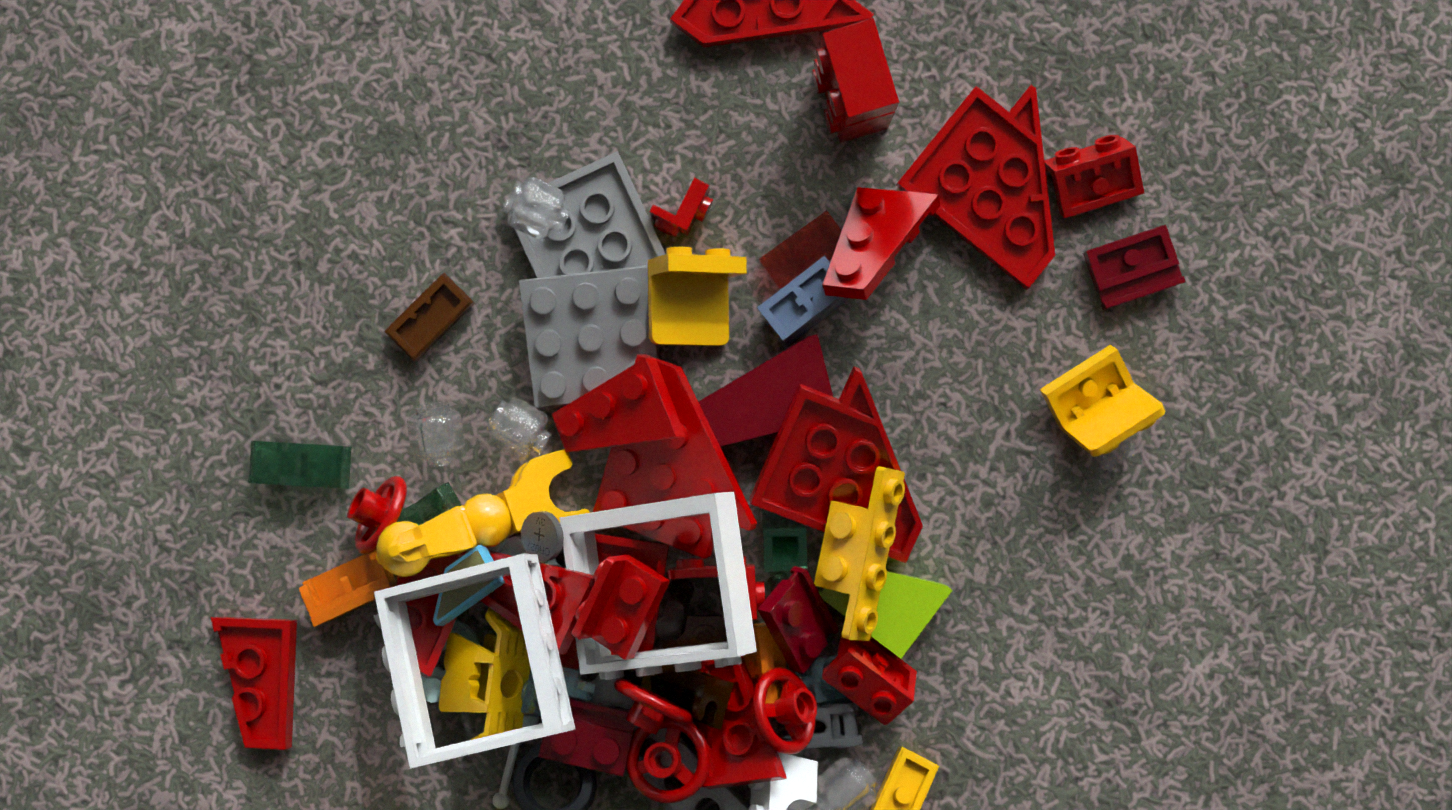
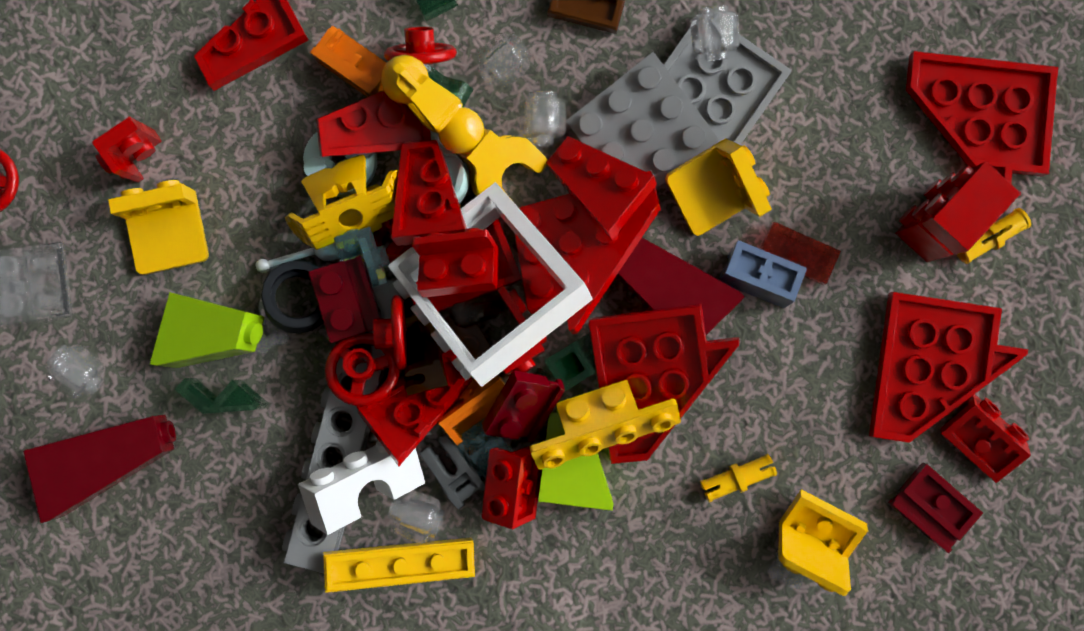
camera: 60 degrees right, 0 degrees up
(456, 601) = (405, 142): tile -> none
(541, 645) = (392, 219): white window -> none
(542, 535) = (474, 177): dark grey piece -> none
(693, 207) = (783, 150): red bracket -> none
(792, 709) = (452, 440): red piece -> none
(872, 236) = (842, 295): red wing -> none
(900, 23) = (1011, 225): none -> yellow pin
(993, 444) = (738, 478): none -> yellow pin

